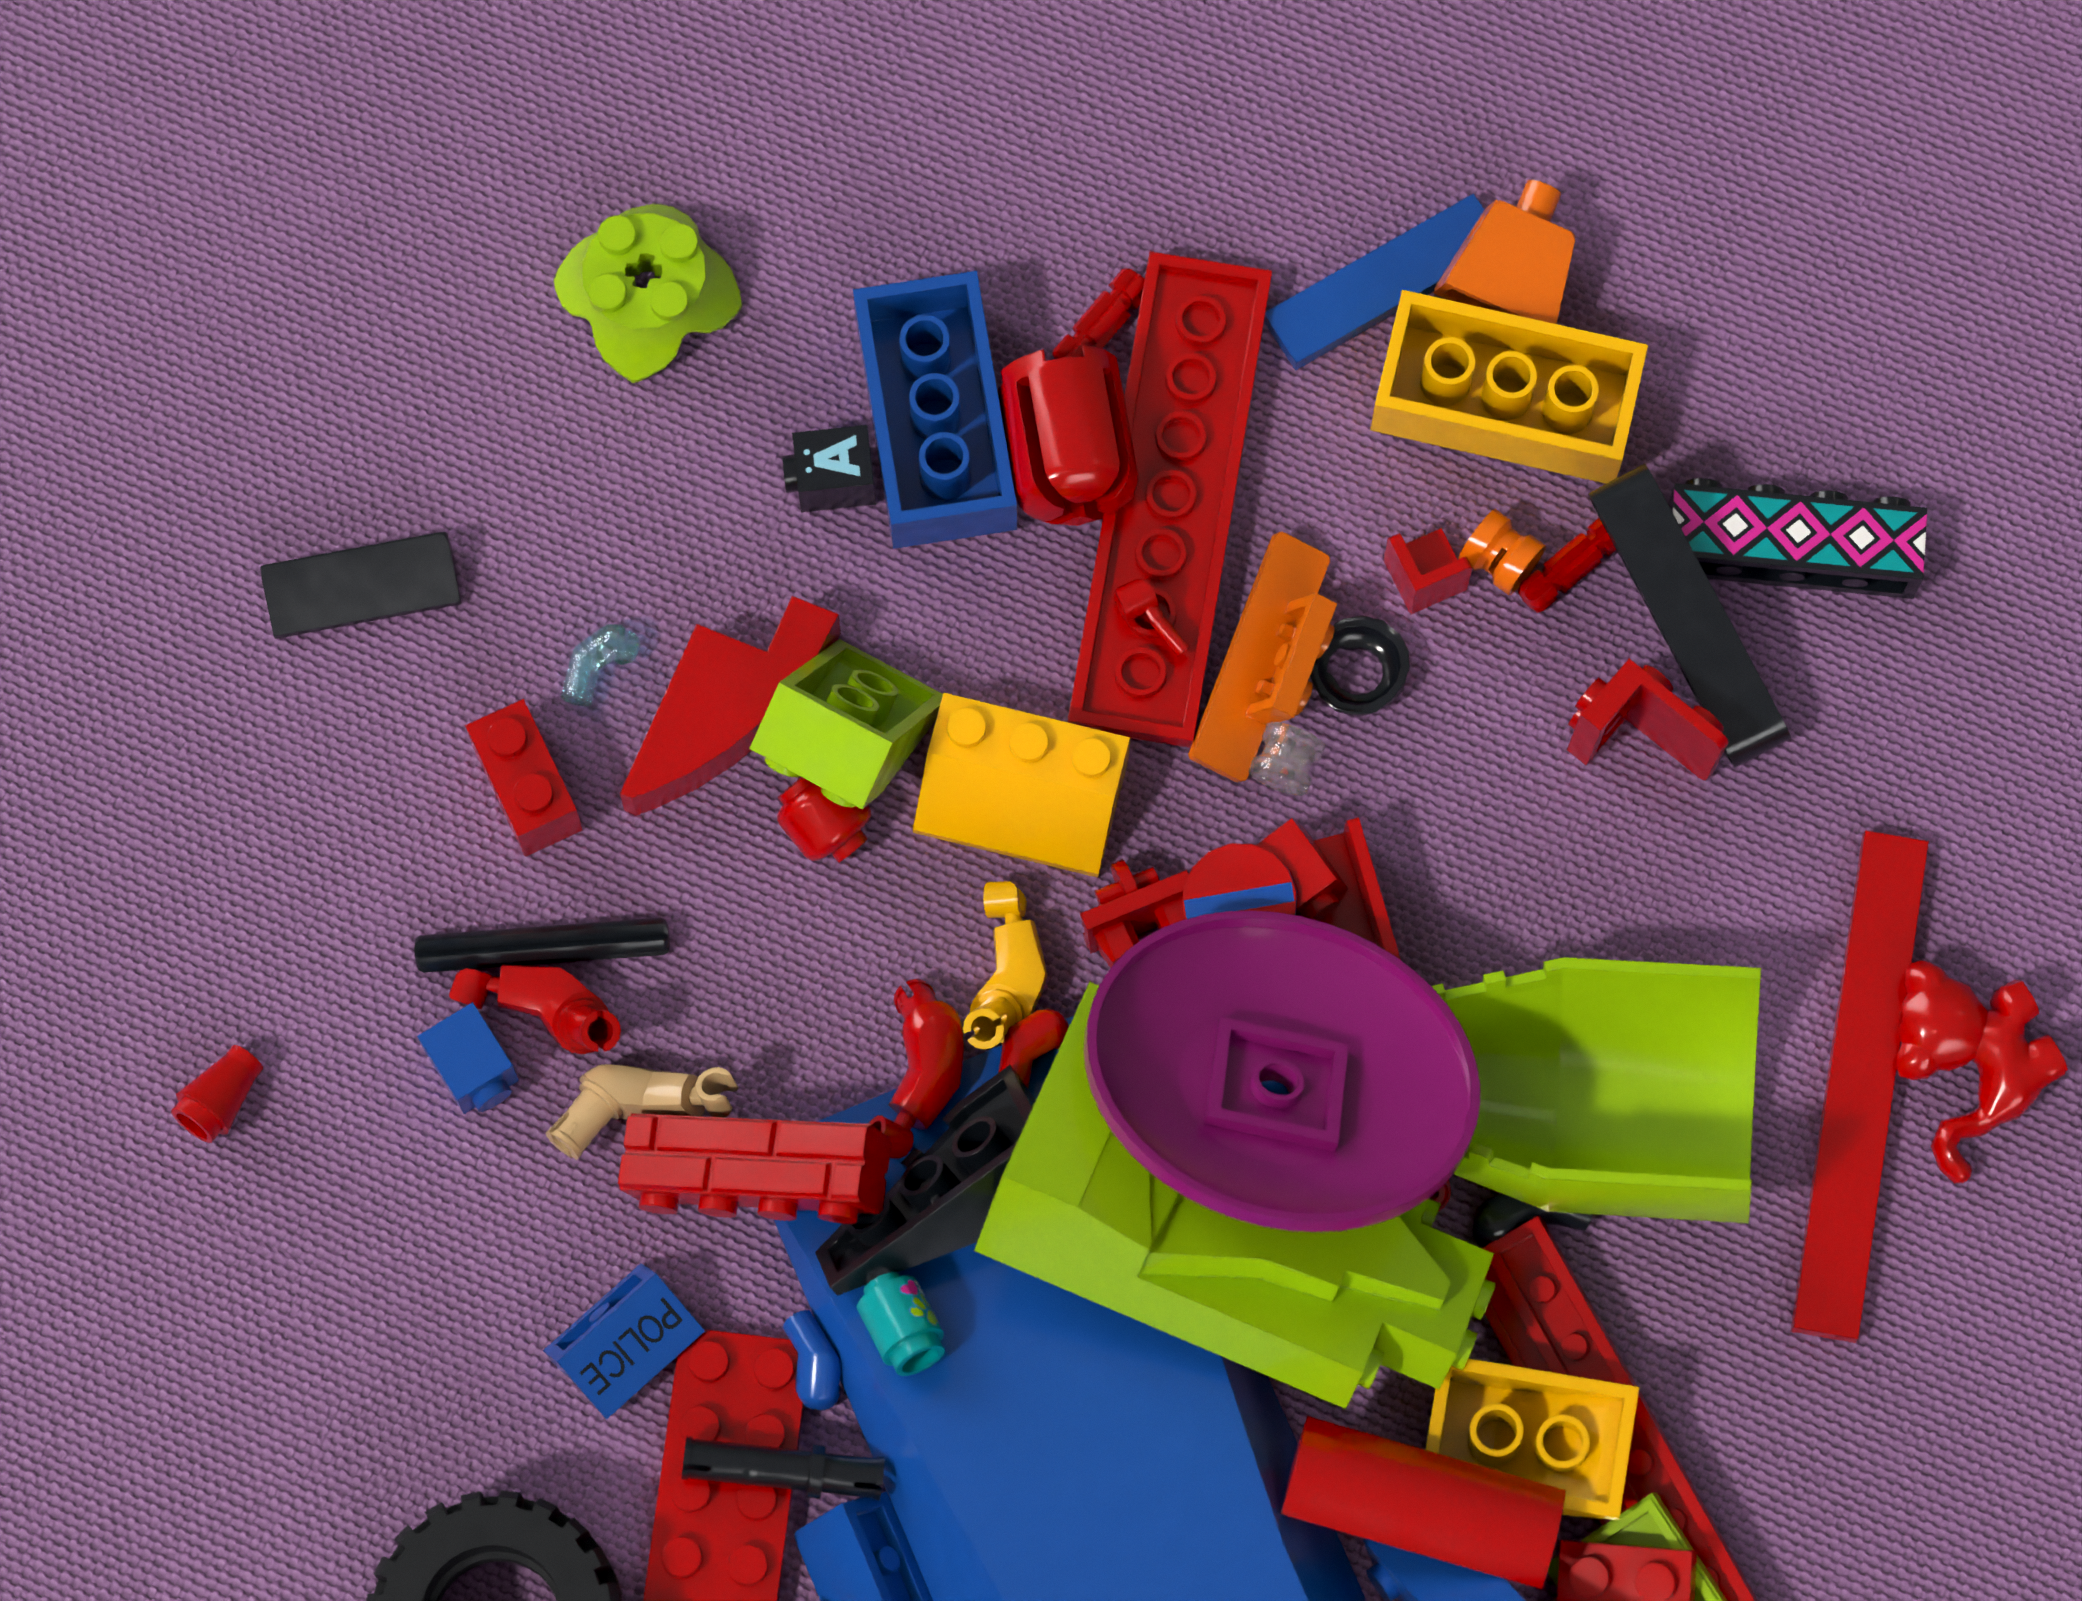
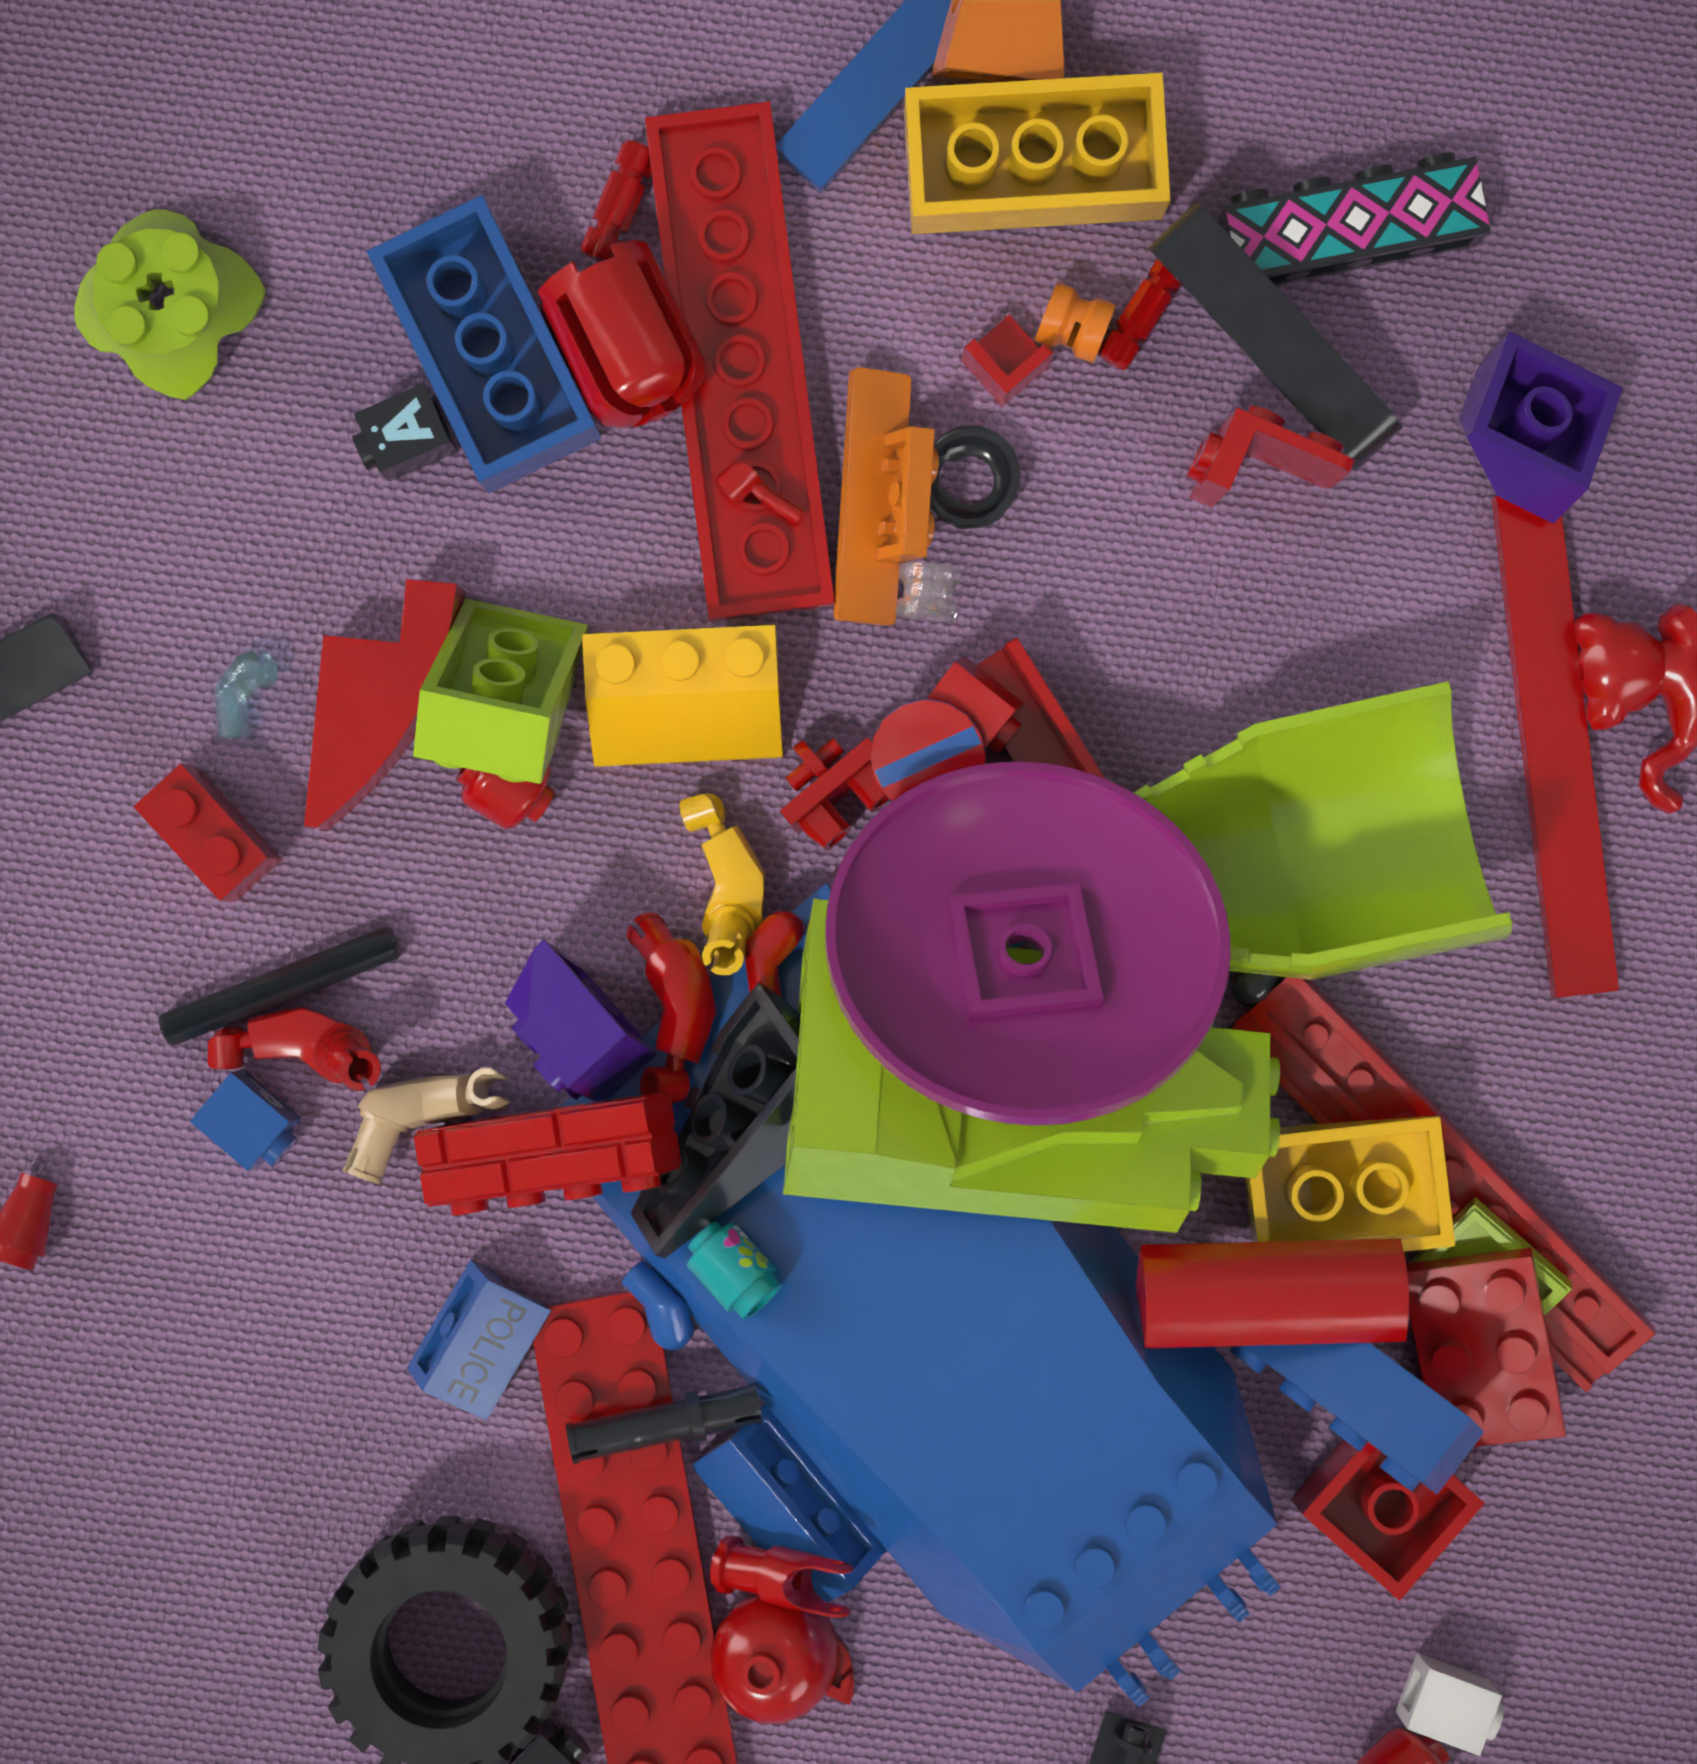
camera: 15 degrees left, 15 degrees up
(818, 1051) = (574, 1027): none -> dark purple slope
(1918, 769) = (1537, 425): none -> dark purple slope

